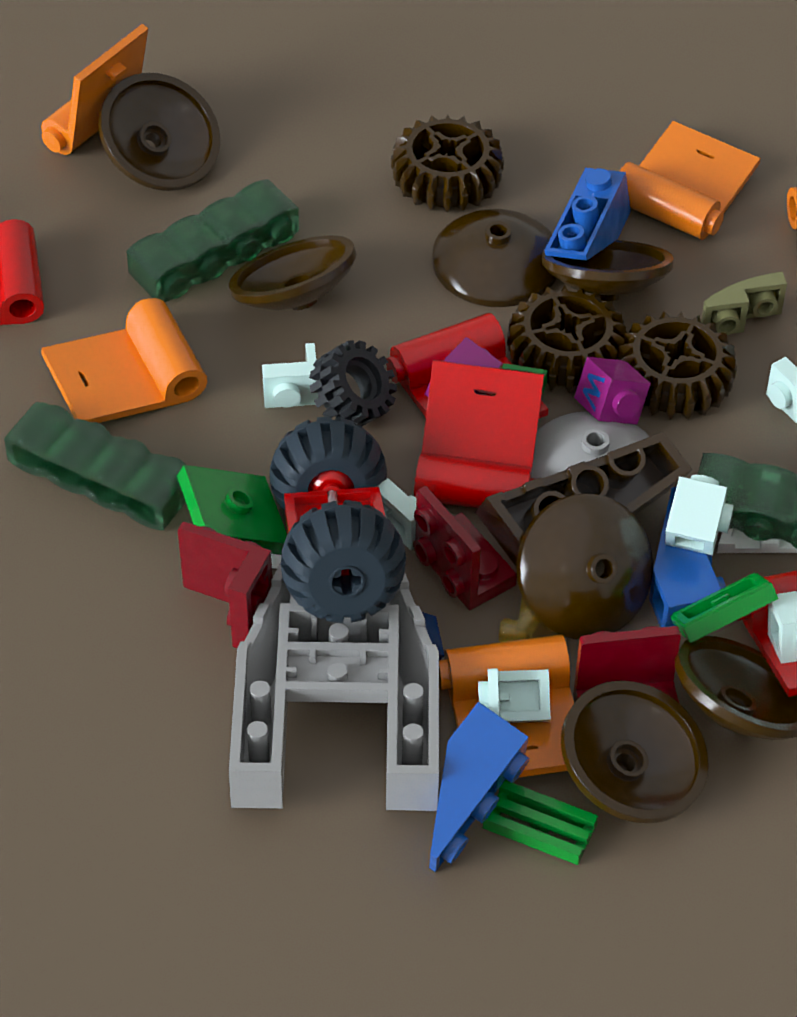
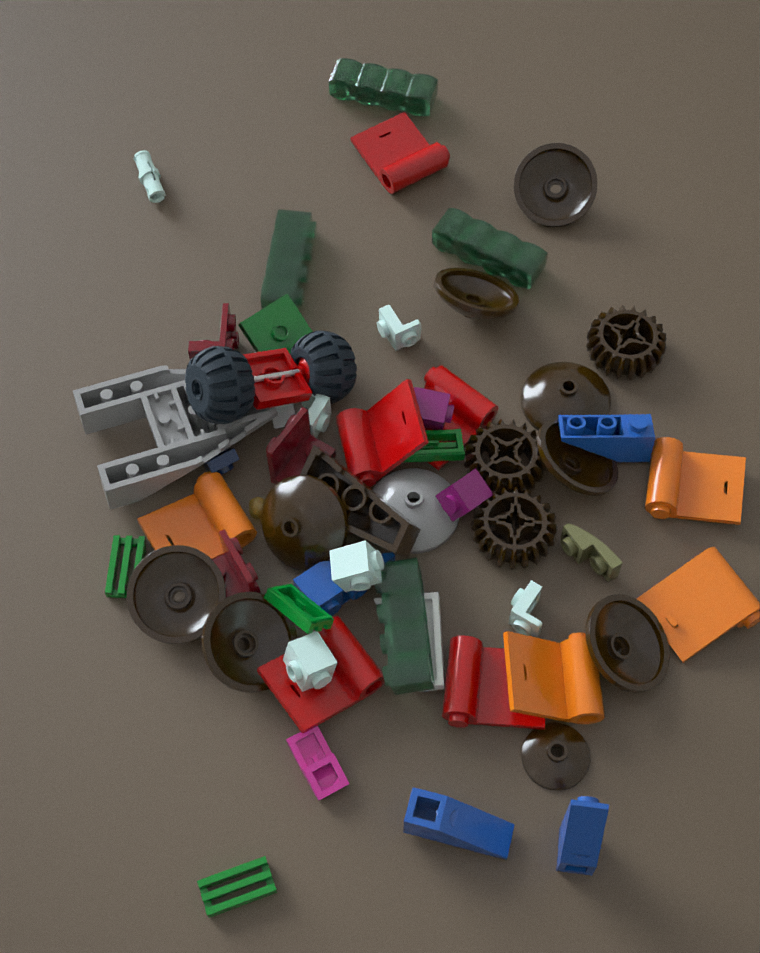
camera: 70 degrees right, 10 degrees up
(80, 116) = (549, 130): orange door -> none
(128, 368) = (371, 248): orange door -> none
(367, 372) = (394, 337): black tyre -> none
(476, 764) = (127, 512): blue slope -> none
(517, 695) = (194, 517): light aqua bracket -> none

